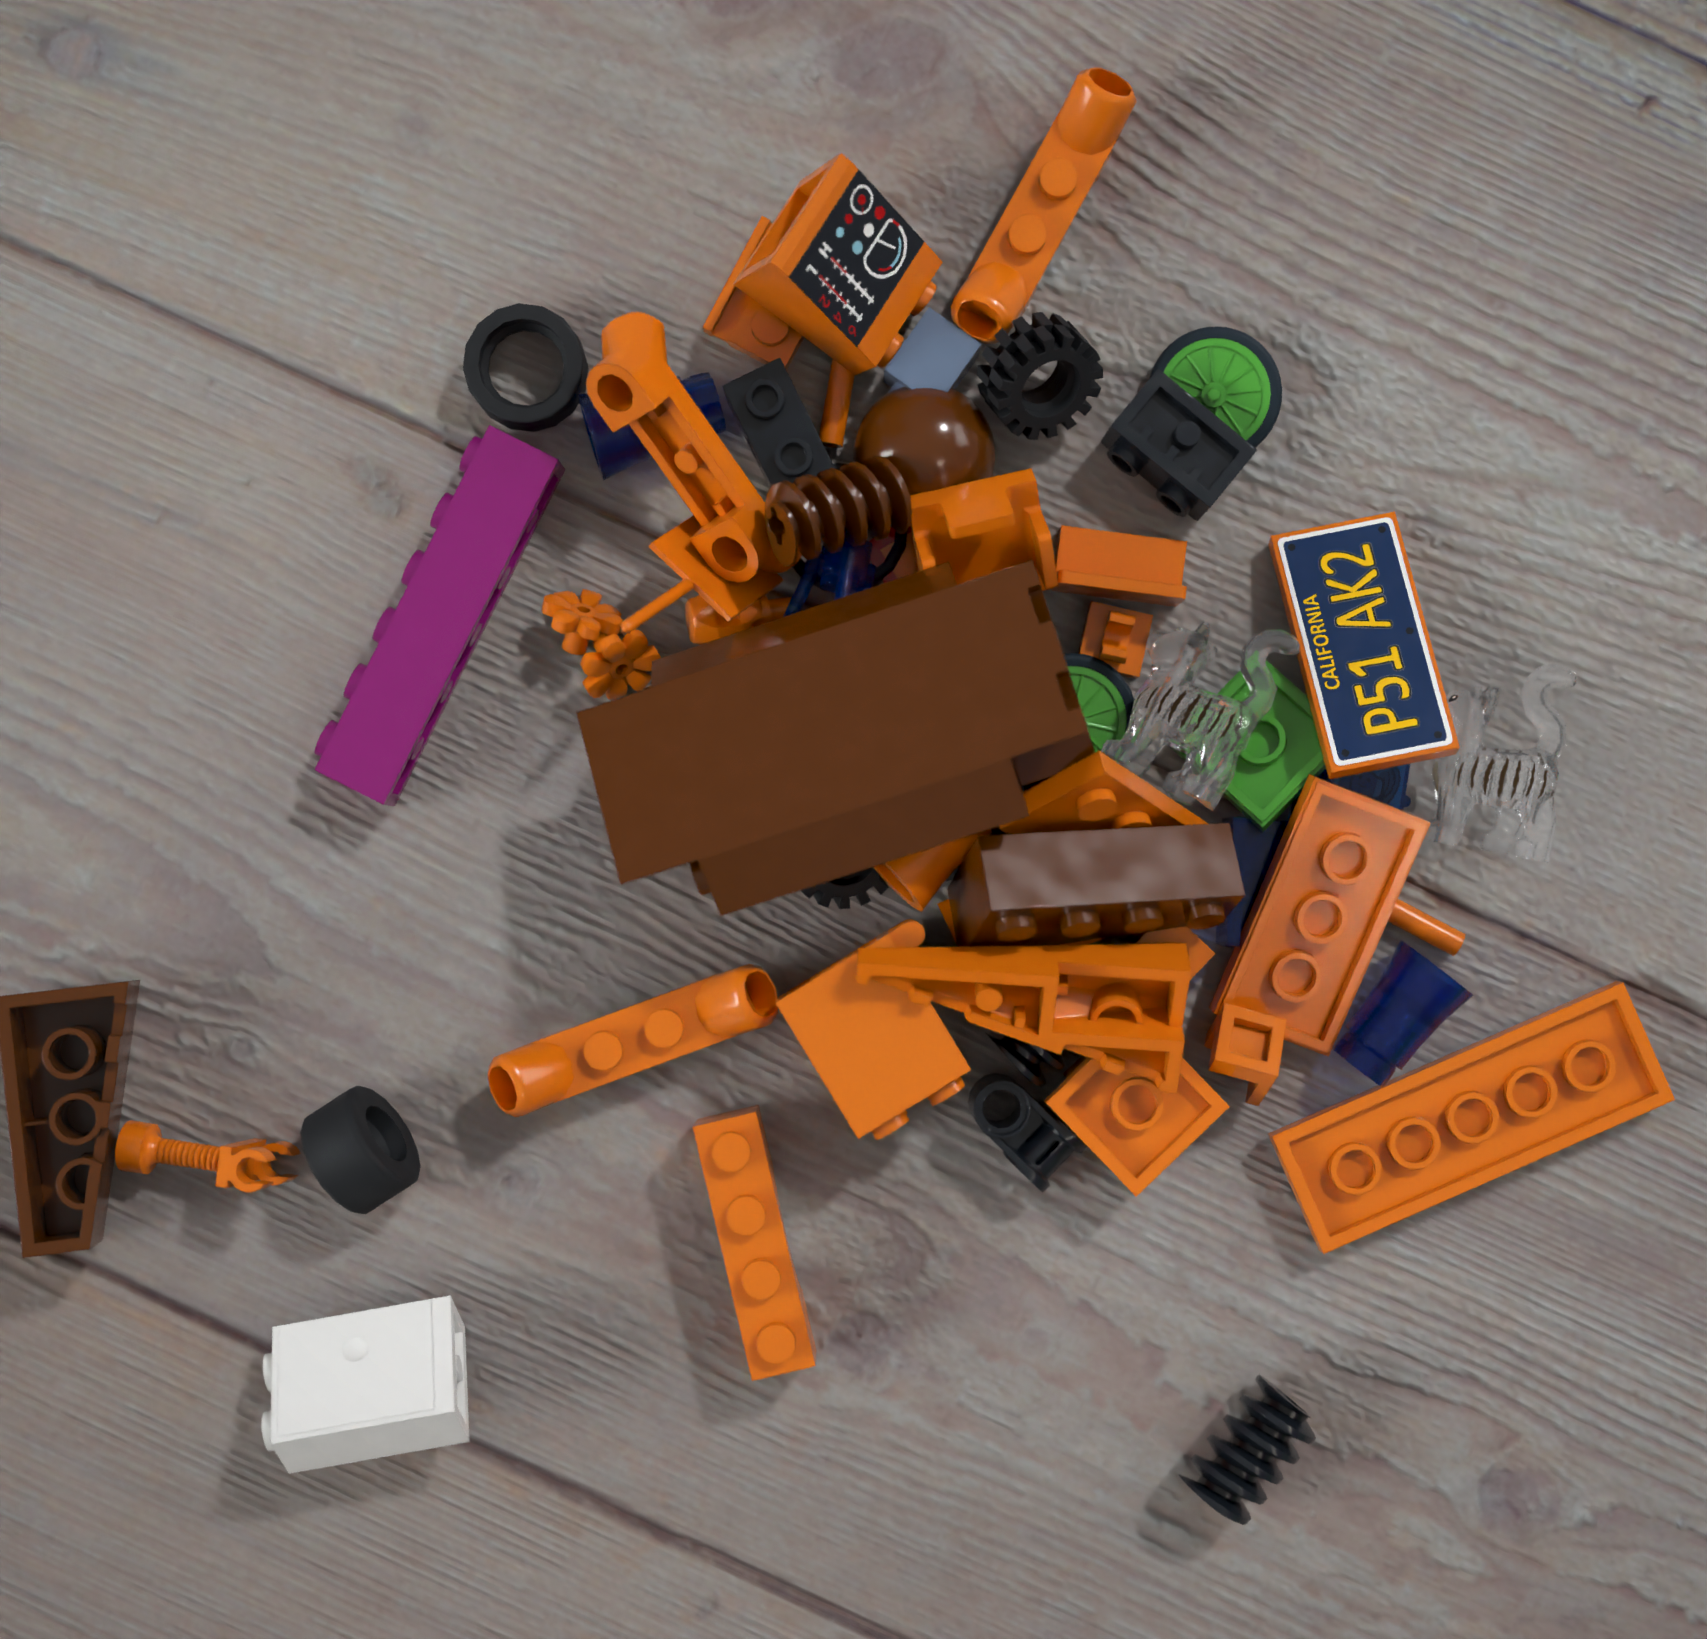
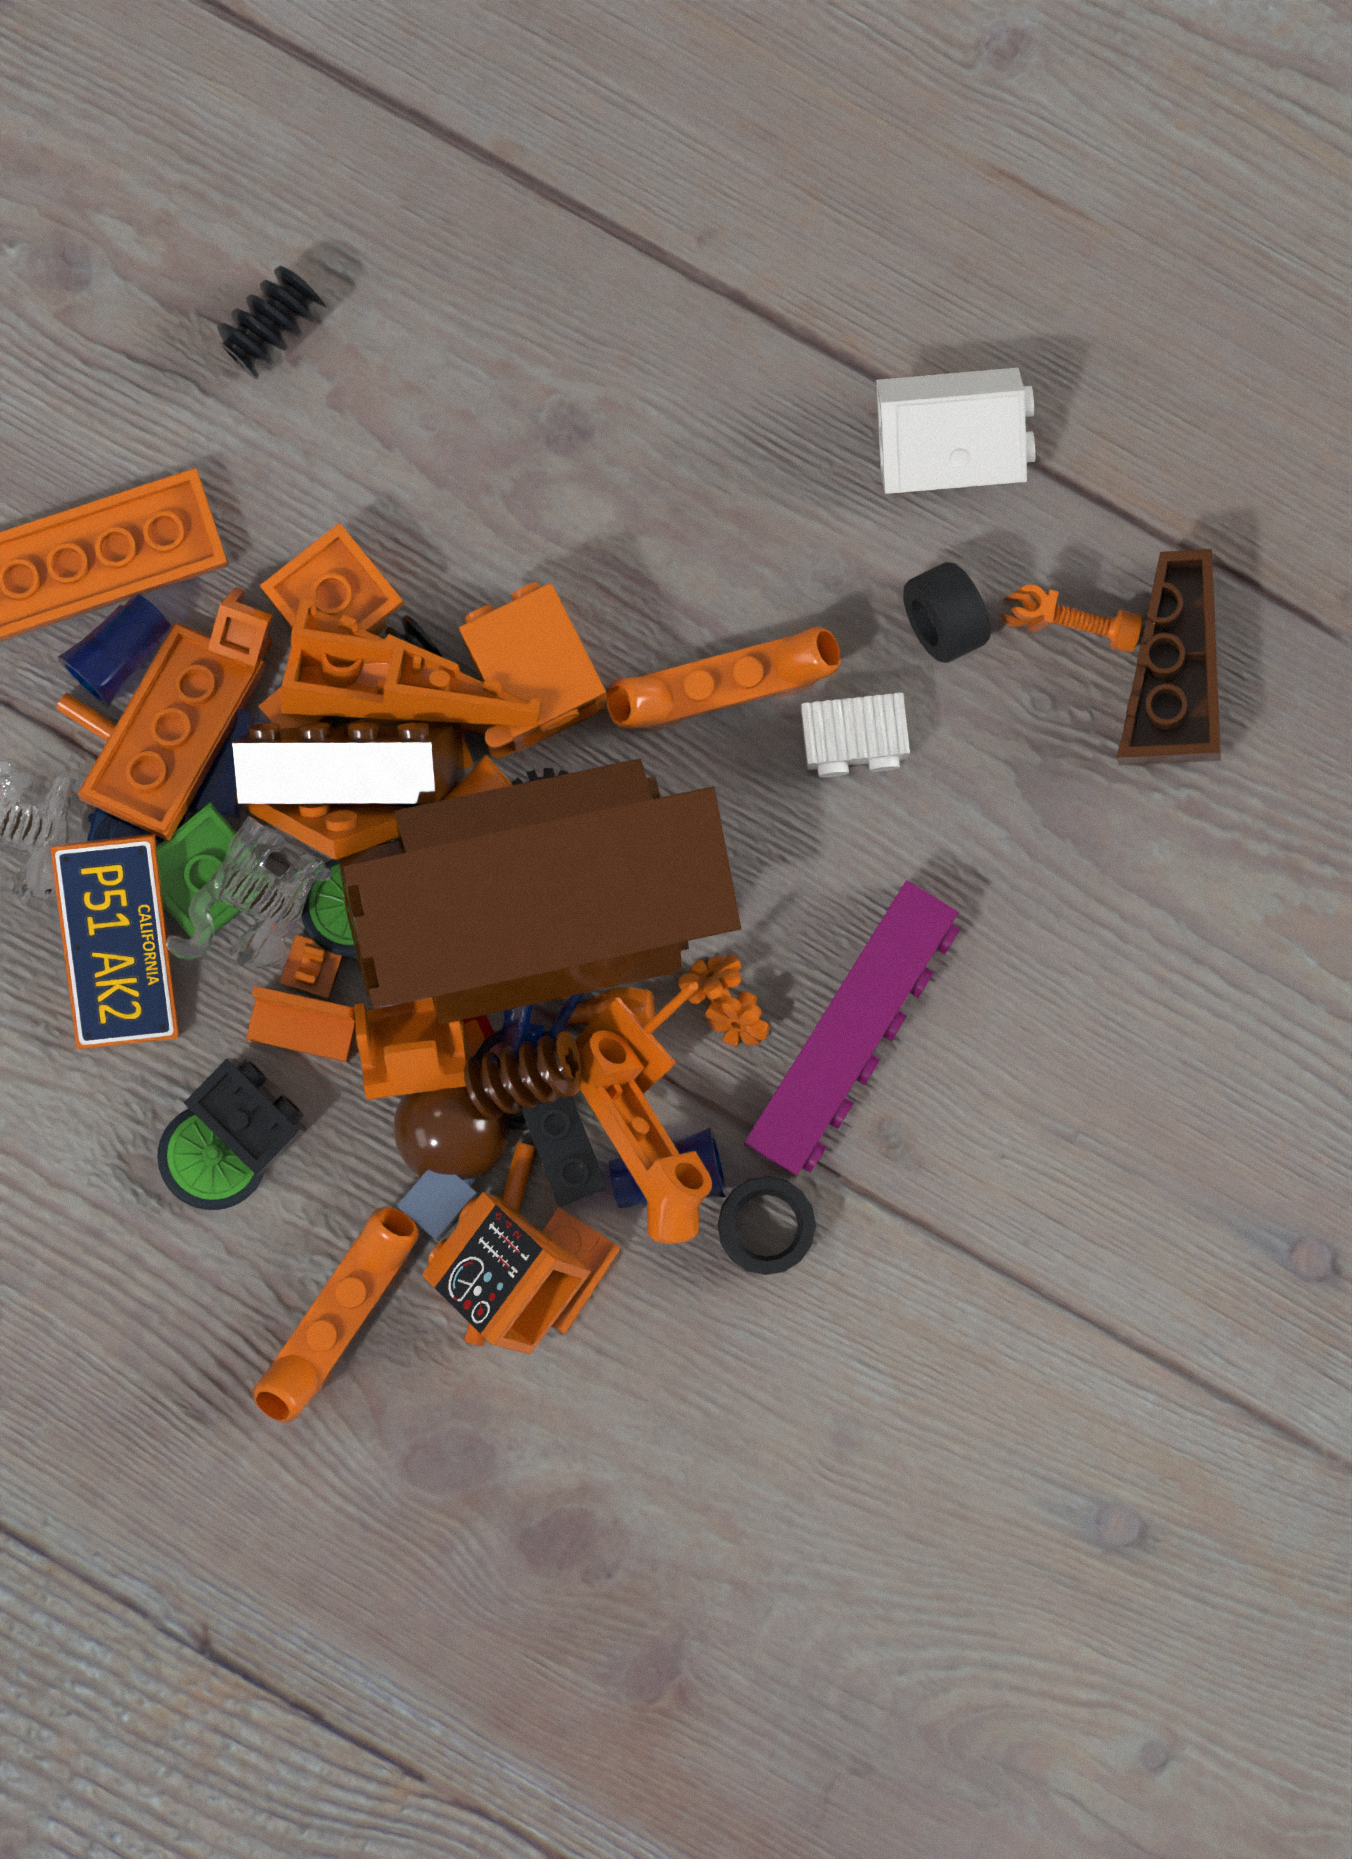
camera: 170 degrees left, 5 degrees down
(465, 988) = (855, 733): none -> white brick
(754, 1243) = (642, 515): orange arch -> none
(1024, 353) = (352, 1176): black tyre -> none
(1030, 1136) = (418, 579): black piece -> none

